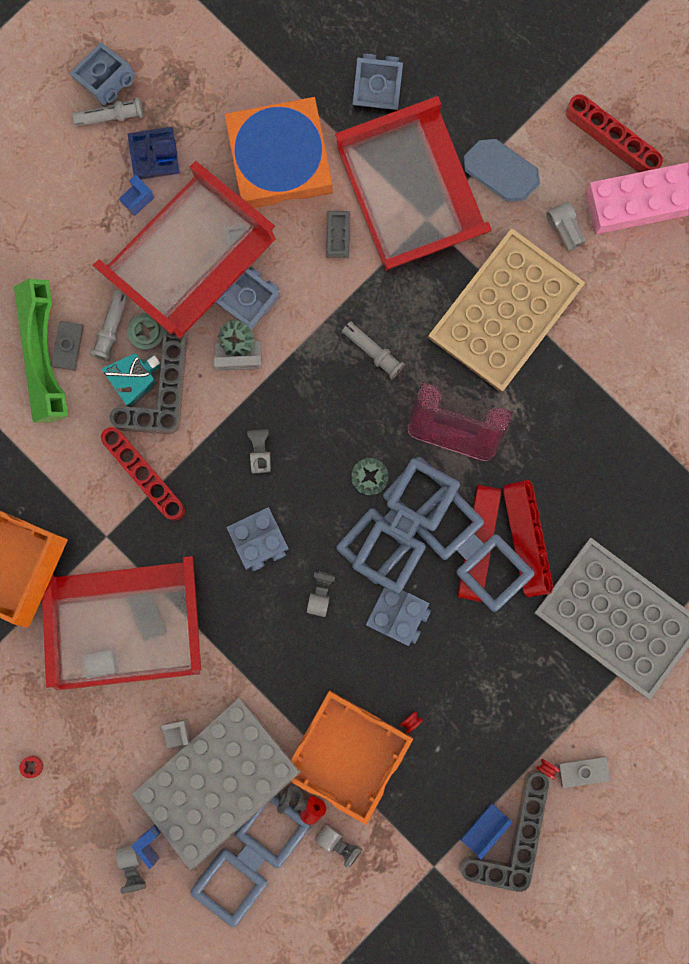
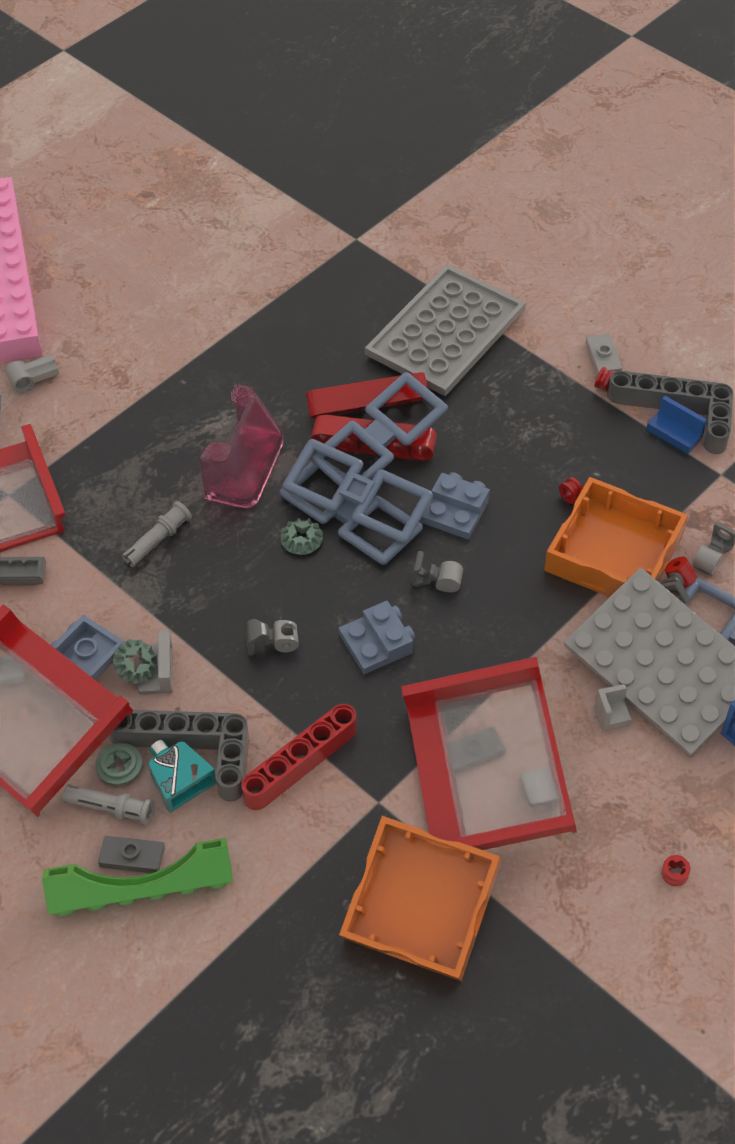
camera: 90 degrees left, 30 degrees down
(506, 310) = (120, 421): tan plate -> none

